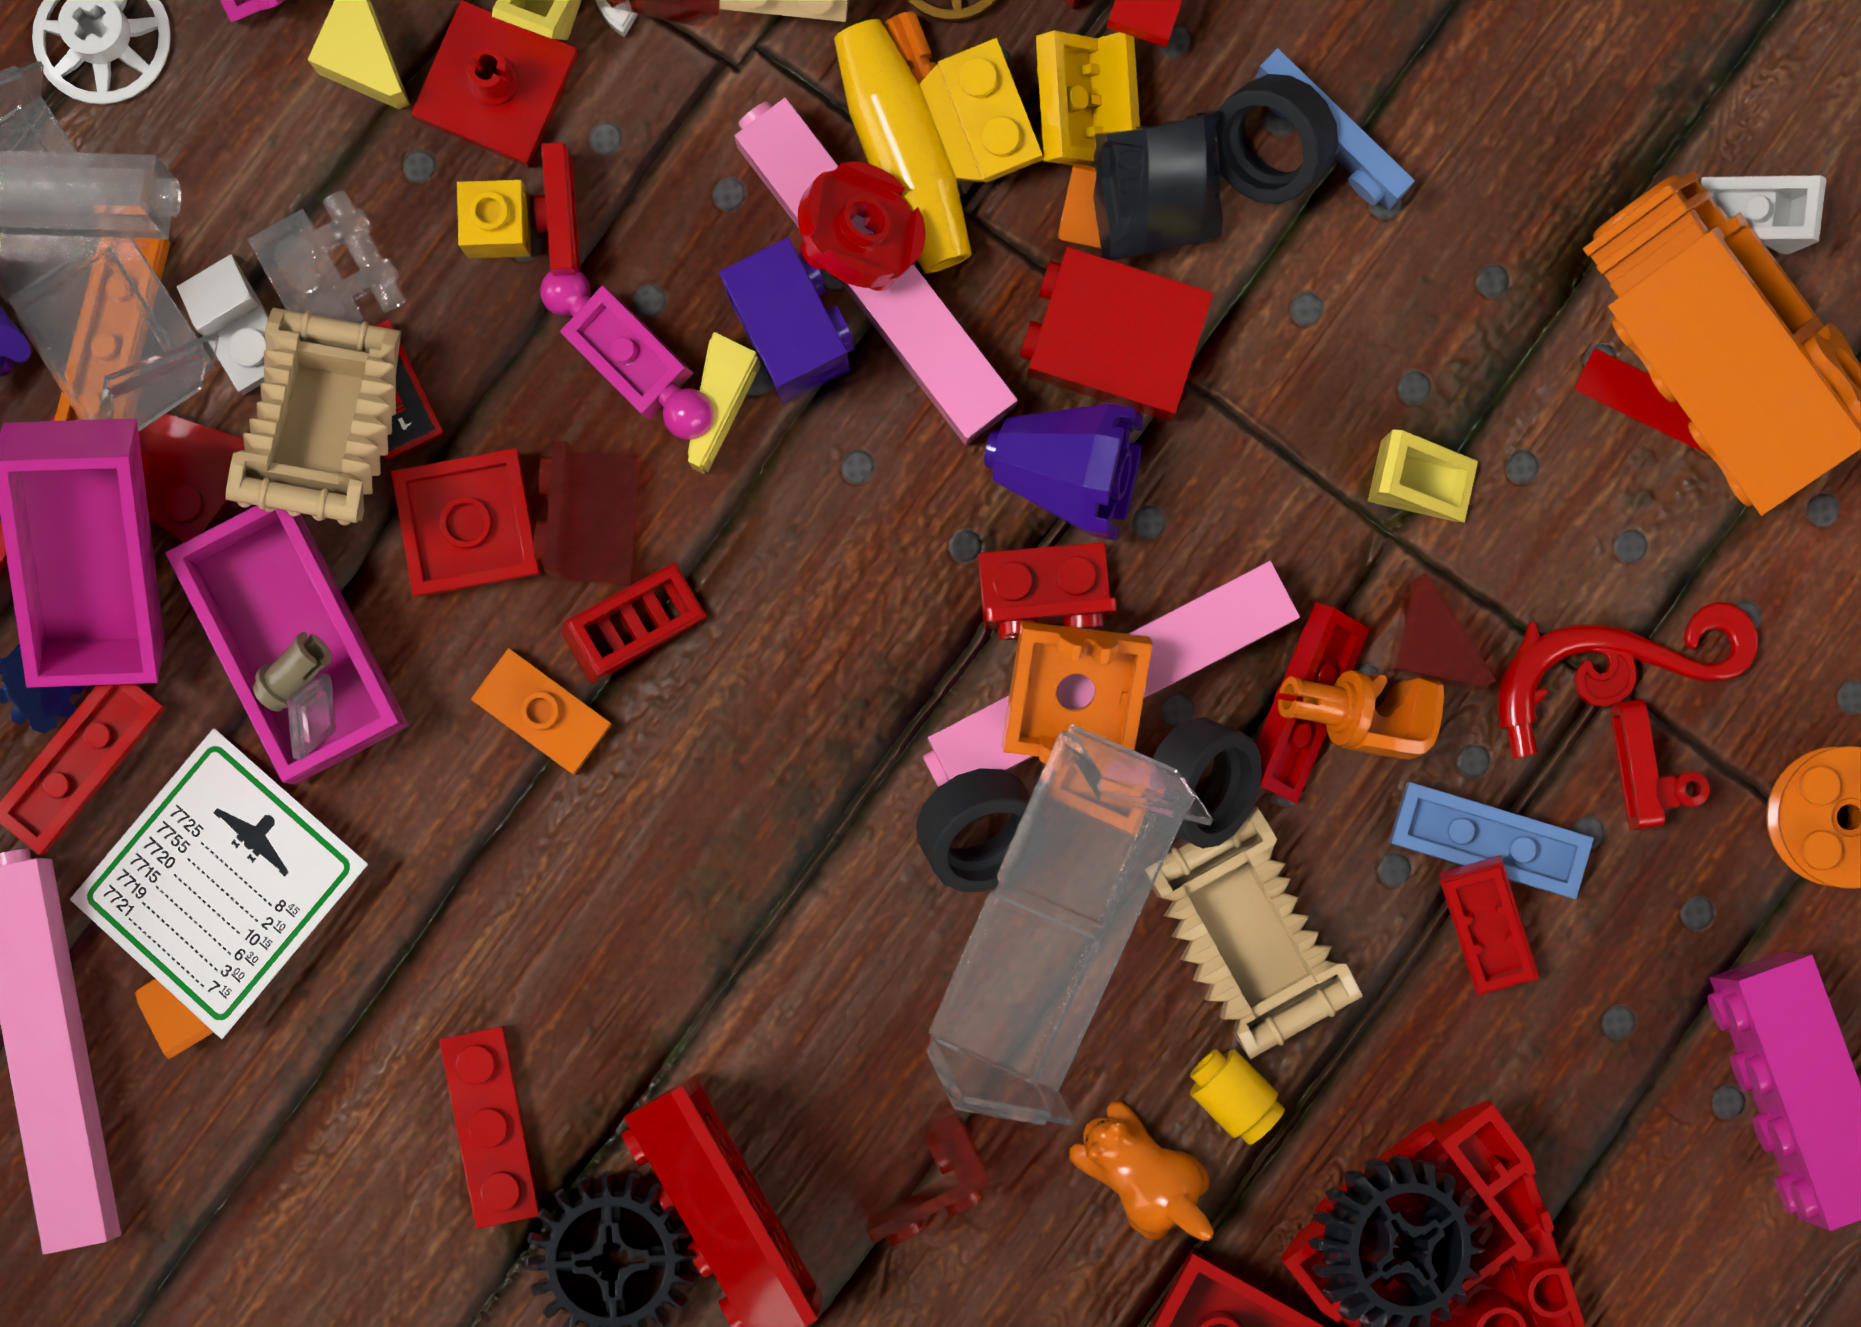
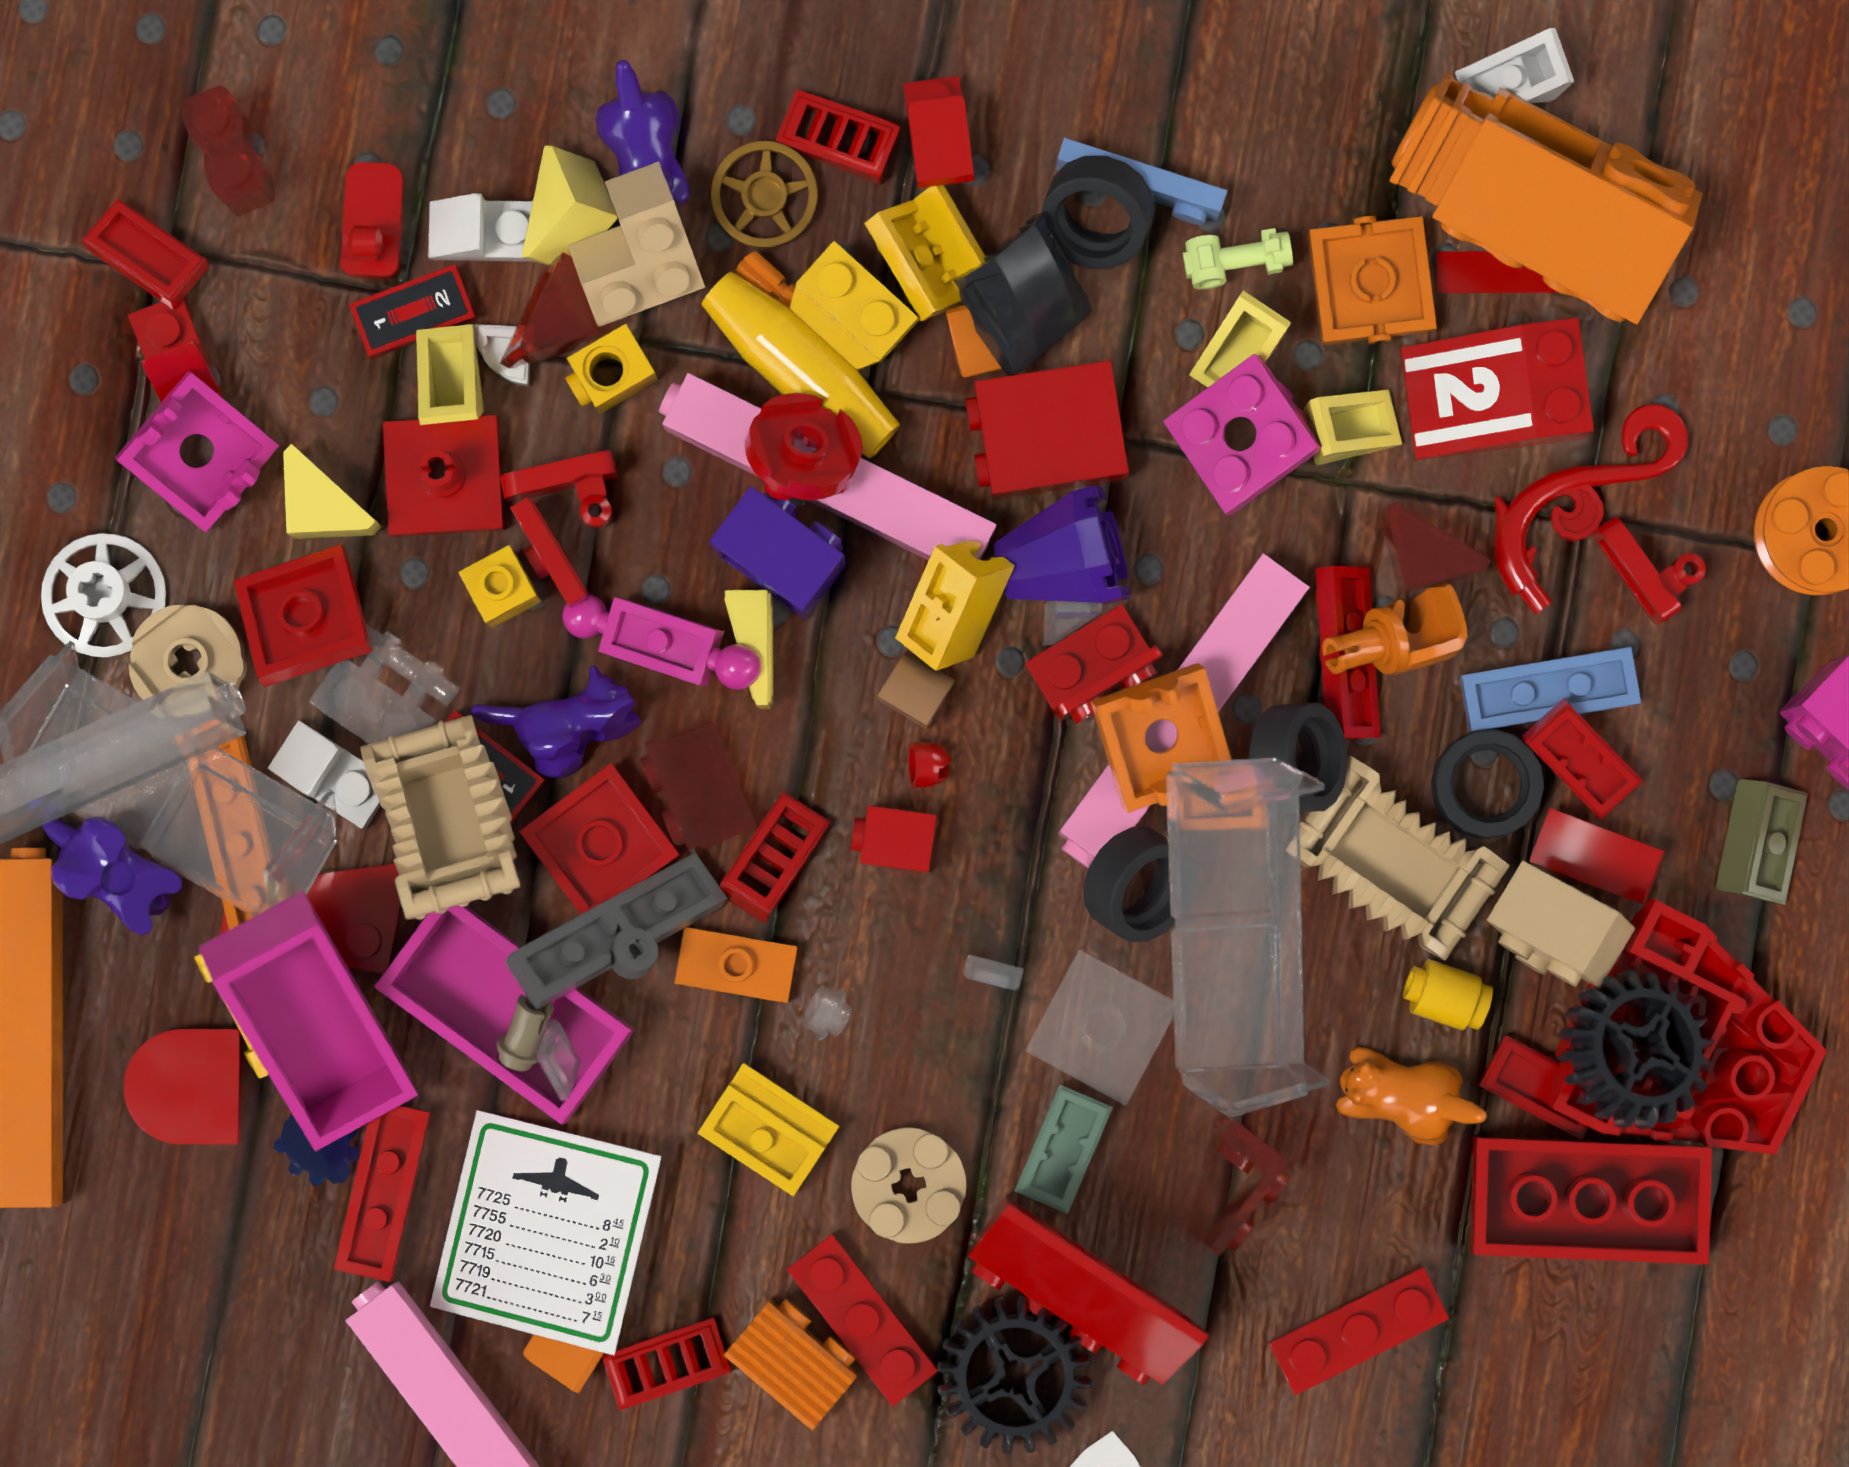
camera: 25 degrees left, 0 degrees up
(170, 111) = (189, 628): none -> tan plate
(217, 1064) = (620, 1380): none -> red slope
(283, 151) = (302, 616): none -> red plate
(398, 1134) = (793, 1362): none -> orange brick
(433, 618) = (616, 933): none -> dark grey hinge
(483, 390) = (560, 729): none -> dark purple animal
(490, 890) = (768, 1129): none -> yellow plate
(570, 1035) = (926, 1157): none -> tan plate
(607, 803) = (826, 1013): none -> clear plate
(631, 147) = (581, 472): none -> red piece
(731, 79) = (619, 346): none -> yellow brick
(760, 664) = (894, 839): none -> red brick
(774, 1057) = (1063, 1149): none -> sand green plate
(791, 845) = (992, 972): none -> clear tile
(831, 606) = (927, 764): none -> red hinge
(856, 525) = (915, 690): none -> medium nougat brick
(874, 955) = (1102, 1027): none -> clear tile
(934, 458) = (953, 604): none -> yellow hinge
(1042, 529) = (1066, 617): none -> clear slope
(1271, 1219) = (1525, 1081): none -> red tile
(1344, 456) = (1280, 442): none -> dark pink piece
(1350, 345) = (1245, 331): none -> light yellow slope
(1360, 244) = (1207, 261): none -> yellowish green bar
(1380, 1083) = (1558, 928): none -> tan brick
(1429, 903) = (1530, 779): none -> black tyre
(1455, 1030) = (1597, 856): none -> red slope
(1515, 343) = (1372, 280): none -> orange plate
(1587, 515) = (1497, 390): none -> red slope
(1628, 1097) = (1761, 841): none -> olive slope

